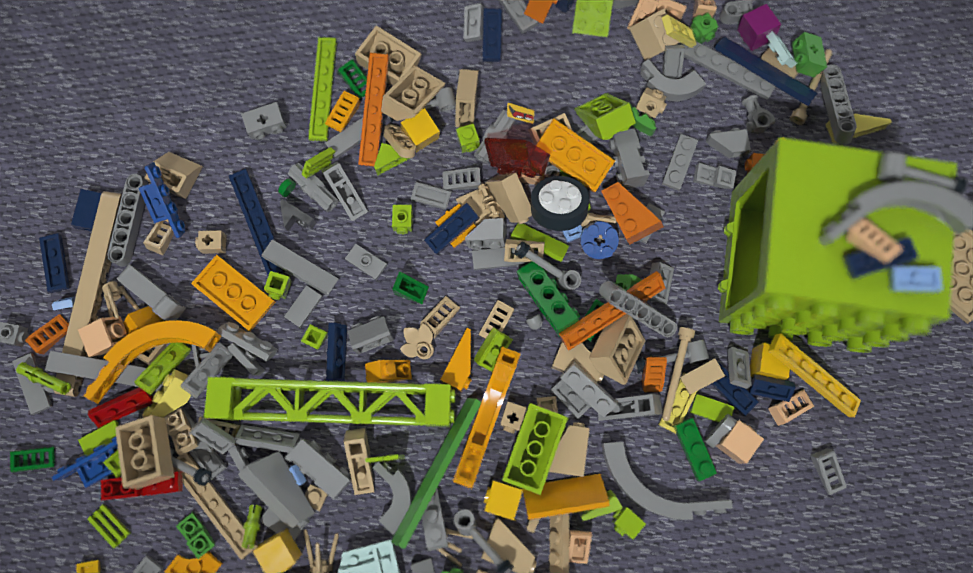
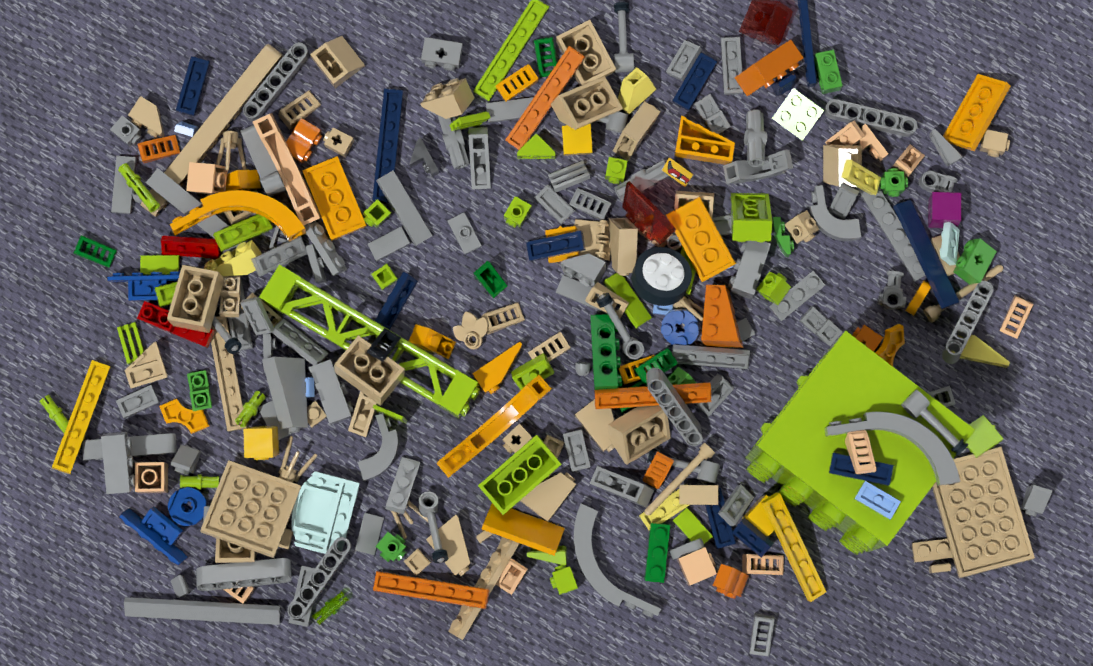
camera: 30 degrees right, 5 degrees up
(23, 309) = (147, 115): none -> tan slope
(86, 210) = (245, 53): dark blue hinge -> none
(133, 541) = (147, 367): none -> tan wing
(159, 202) = (311, 83): blue bracket -> none
(175, 288) = (287, 169): none -> light nougat arch
(178, 258) = (303, 139): none -> orange brick
(286, 187) = (430, 127): green tile -> none
(289, 153) = (448, 99): none -> tan slope
(343, 429) = (368, 373): none -> tan brick
(344, 398) = (384, 345): none -> black slope
(370, 335) = (433, 301): light grey slope -> none
(399, 141) = (548, 145): tan beam -> none
(423, 46) = (623, 61): none -> light grey piece
(428, 165) = (568, 174): none -> light grey tile
(435, 473) = (427, 448): bright green tile -> none
(446, 64) = (635, 90): none -> light yellow slope
(502, 500) = (469, 502): yellow head -> none
(522, 55) = (711, 114): none -> light grey slope
(529, 79) = (701, 144): none -> light orange wedge
(570, 51) = (755, 138): none -> light grey piece
(579, 81) = (742, 172): none -> light grey arch
(579, 292) = (622, 371): none -> light orange slope
(589, 390) = (594, 452): light grey plate -> none
(603, 274) = (666, 360): none -> green slope
(639, 251) = (711, 356): none -> light grey tile
(658, 164) = (774, 287): none -> lime brick
(730, 143) = (852, 304): light grey slope -> none
(777, 439) = (730, 581): none -> orange brick
(781, 109) = (918, 298): none -> light orange beam
(859, 78) = (1016, 299): none -> light nougat slope
(940, 327) = (940, 568): none -> tan tile

